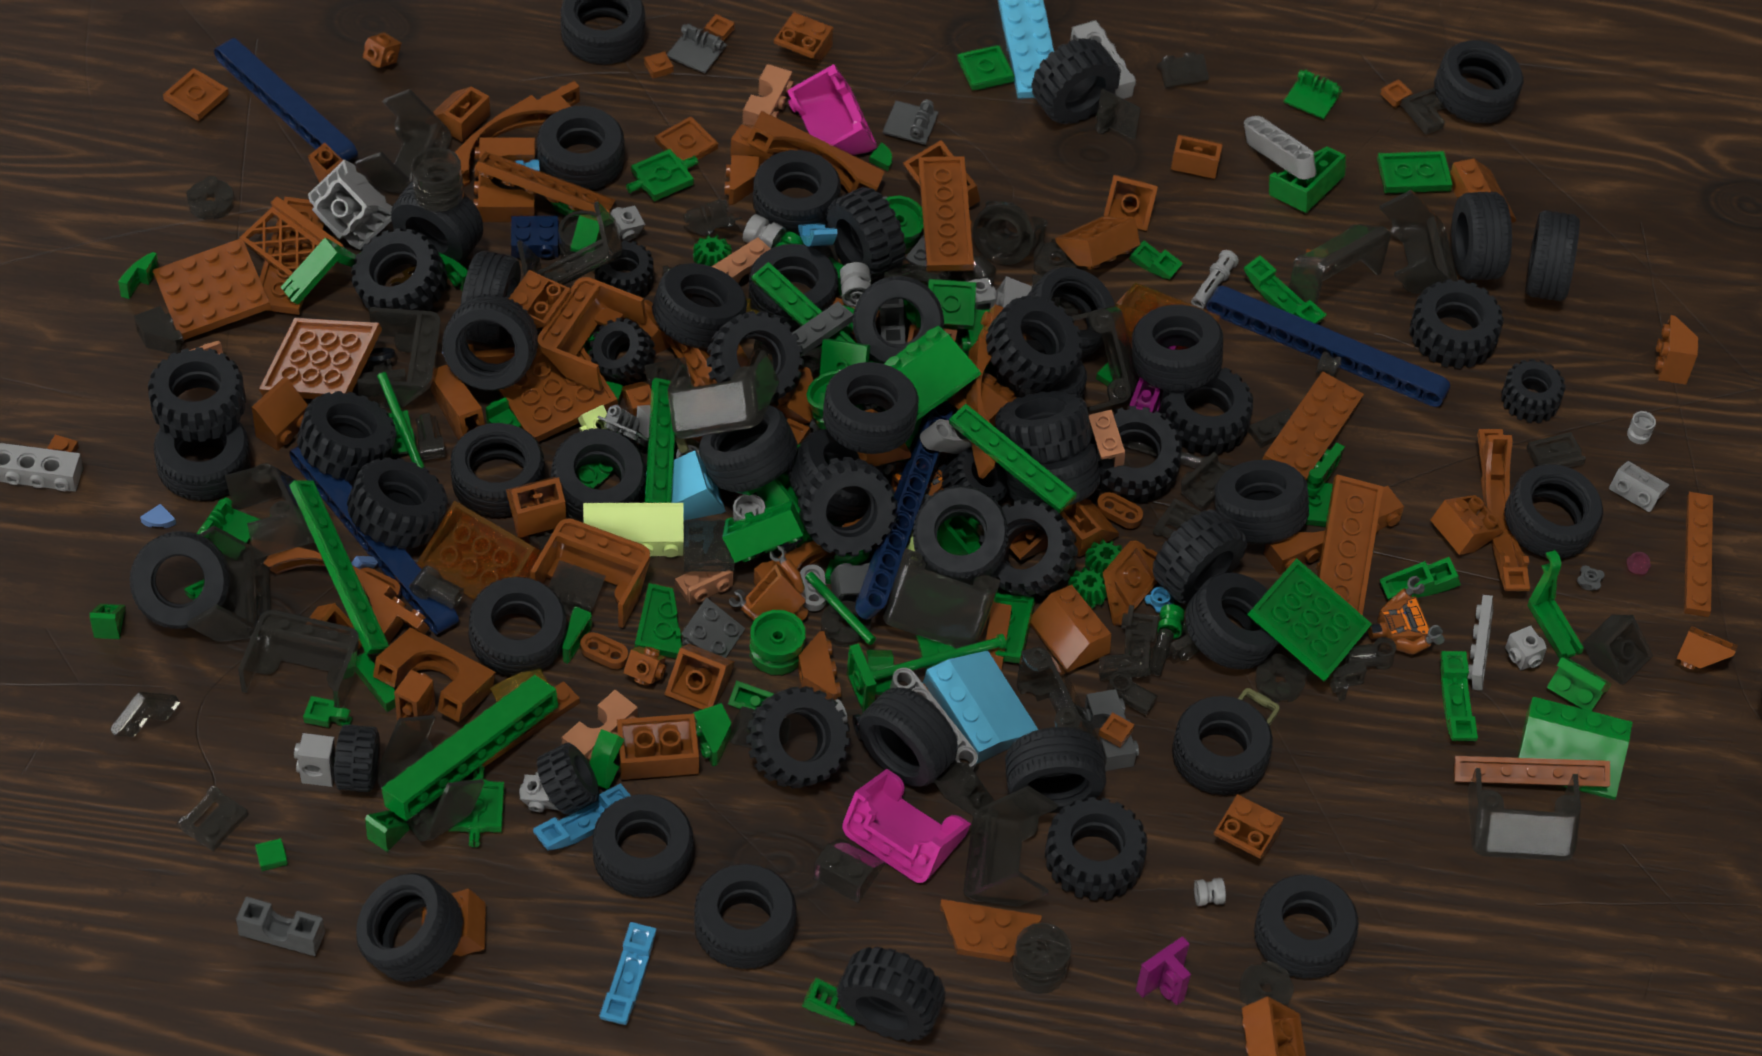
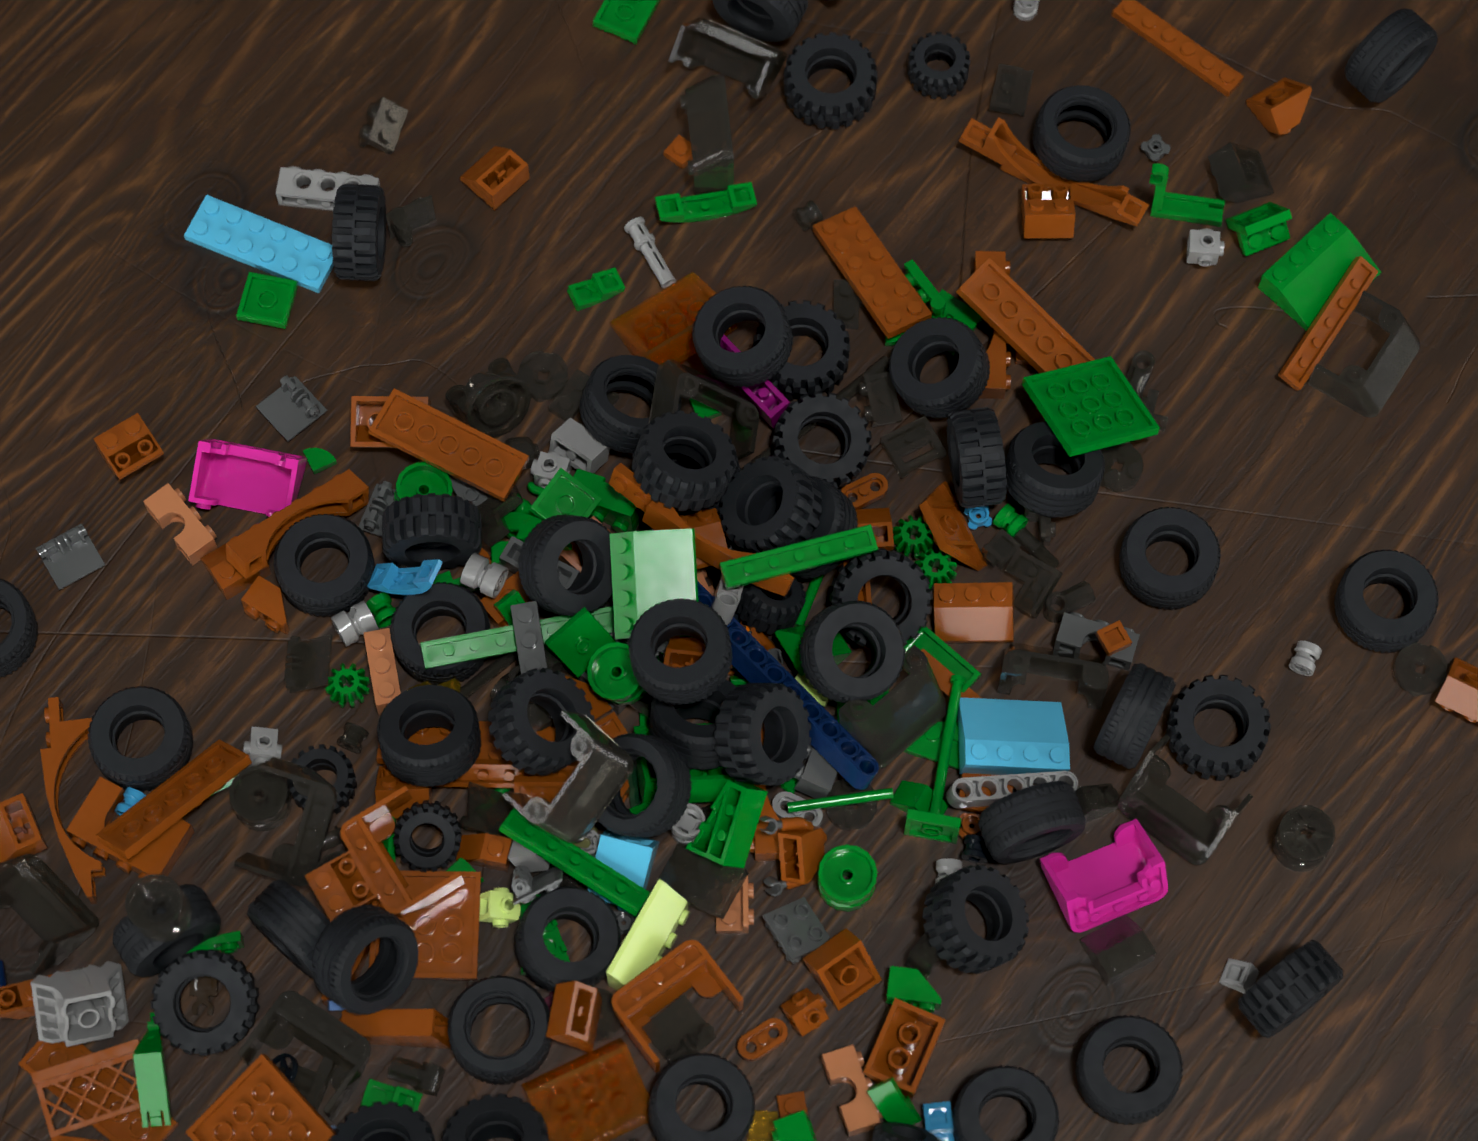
camera: 55 degrees left, 15 degrees up
(399, 419) = (400, 1095): green bar -> none
(500, 413) = (433, 993): green bracket -> none
(537, 233) = (218, 841): dark blue plate -> none
(579, 625) = (722, 1046): green slope -> none
(586, 232) = (272, 791): green slope -> none
(658, 65) = (65, 603): dark orange plate -> none
(659, 622) = (763, 976): green wing -> none
(662, 174) = (215, 677): green plate -> none
(687, 140) = (184, 631): dark orange tile -> none
(720, 27) = (57, 519): dark orange plate -> none
(747, 696) = (891, 930): green slope -> none
(817, 669) = (894, 858): dark orange slope -> none
(820, 1007) = (1234, 1053): green slope -> none
(985, 930) = (1242, 866): dark orange wing -> none
(1100, 241) = (550, 325): dark orange slope -> none
(1107, 437) = (814, 458): nougat bracket -> none
(1131, 200) = (516, 269): dark orange slope -> none
(1166, 972) = (1373, 743): magenta bracket -> none
(1249, 827) = (1263, 588): dark orange slope -> none
(1262, 700) = (1131, 494): olive piece -> none
(1280, 147) = (558, 99): light grey beam -> none
(1307, 192) = (589, 101): green wedge -> none
(1312, 94) = (484, 32): green hinge -> none
(1315, 339) = (779, 204): dark blue beam -> none
(1405, 622) = (1122, 329): torso -> none
(1435, 577) = (1083, 287): green slope -> none
(1456, 696) = (1219, 336): green slope -> none
(1480, 649) = (1182, 285): light grey plate -> none
(1638, 486) = (1084, 46): light grey bracket -> none
(1642, 560) = (1162, 94): clear pink plate -> none

